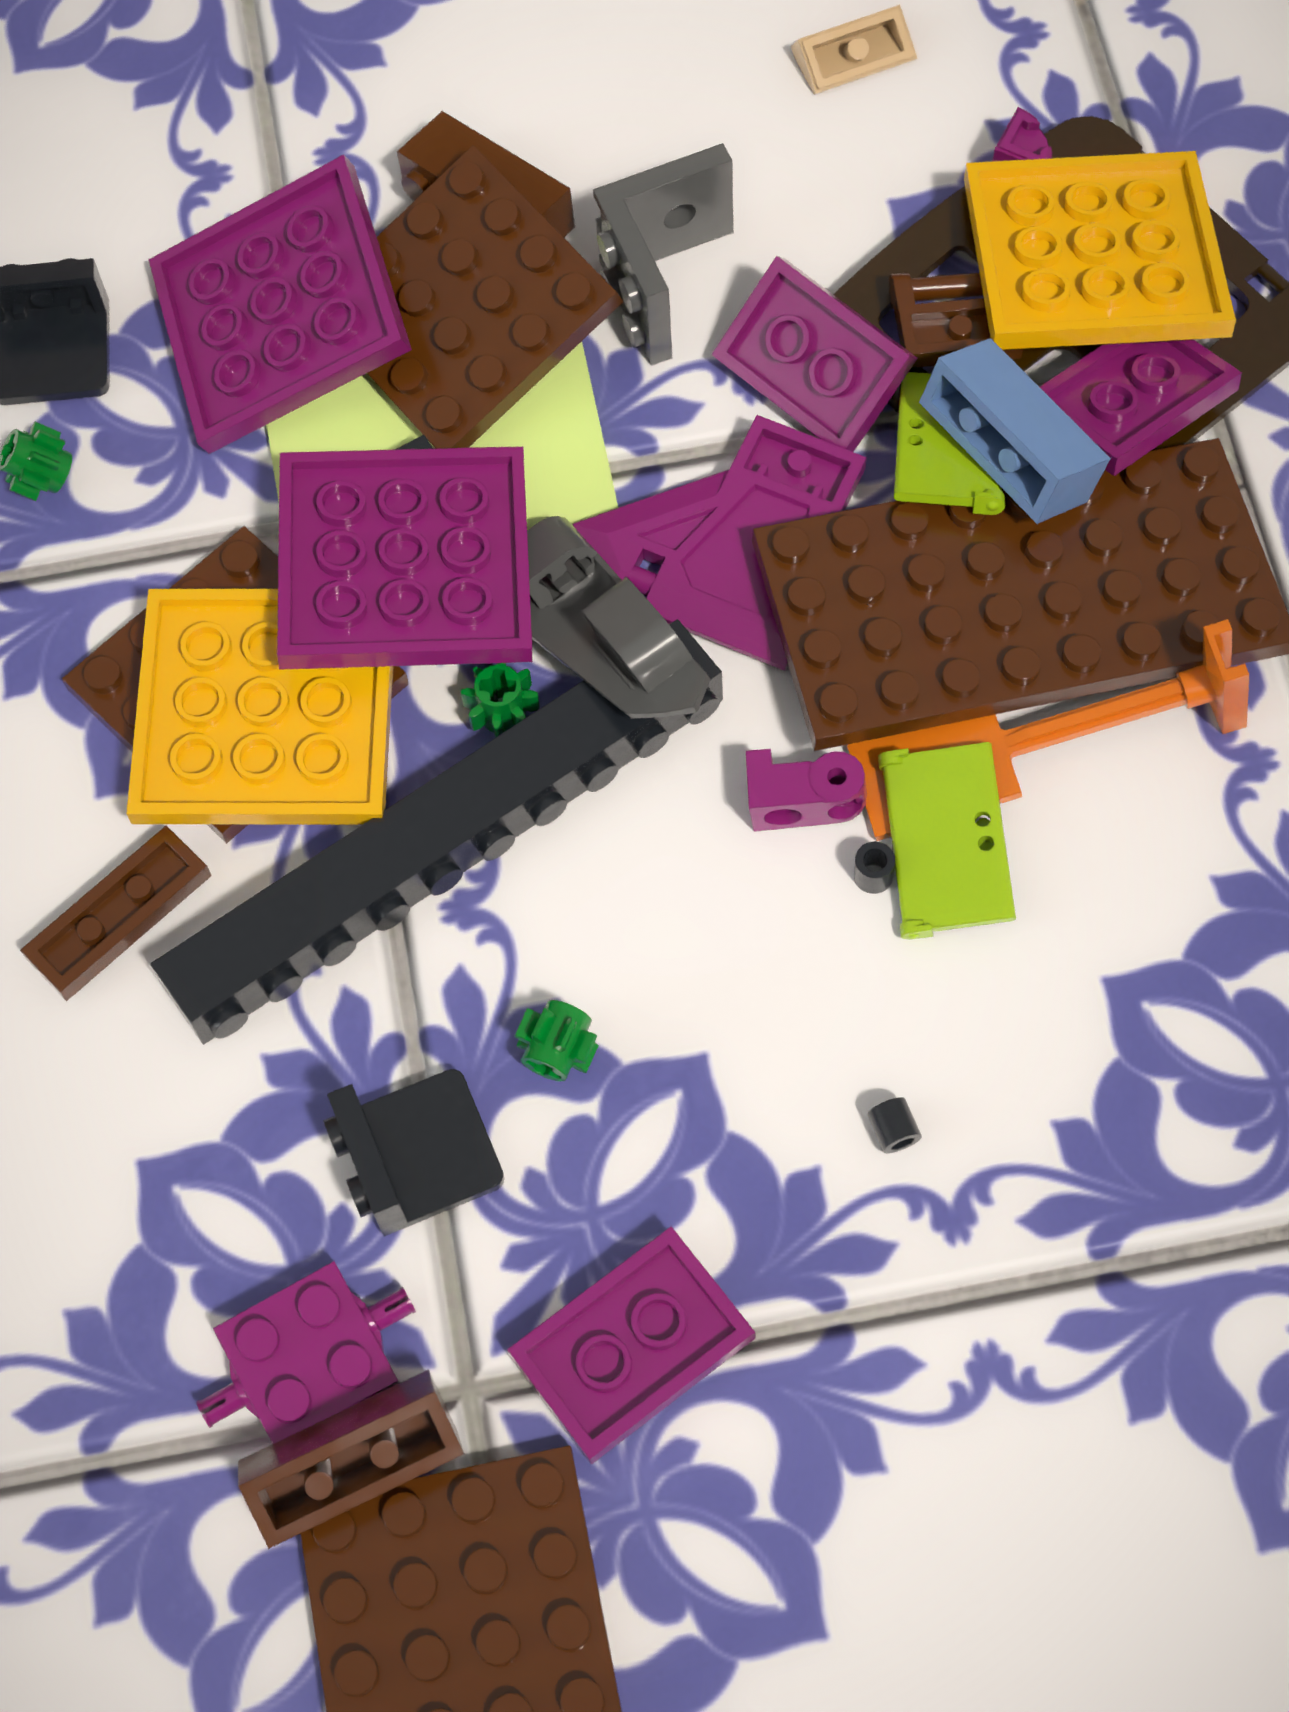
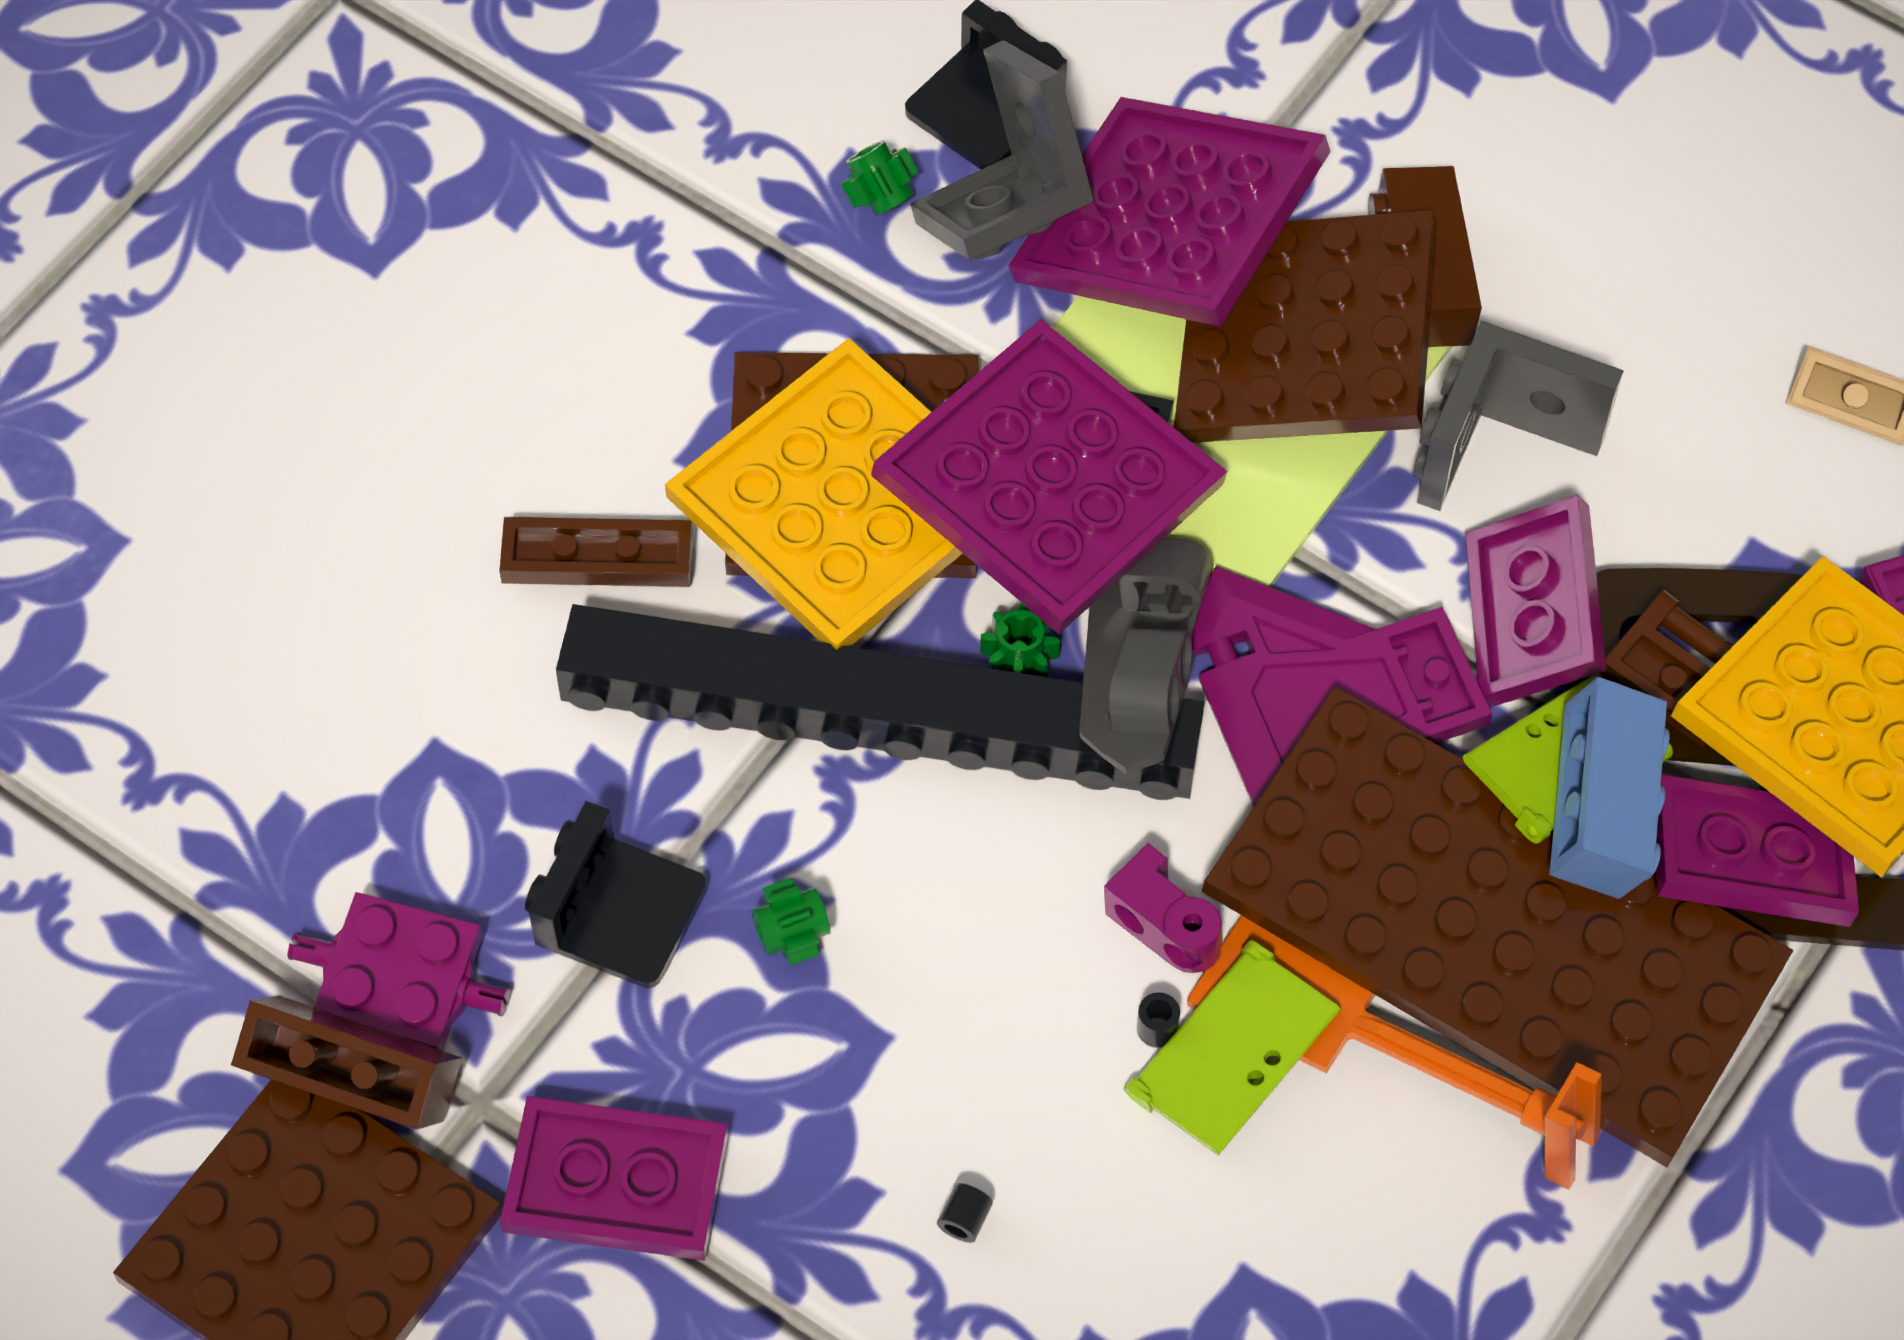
camera: 40 degrees right, 5 degrees down
(154, 355) = (1029, 187): none -> dark grey bracket

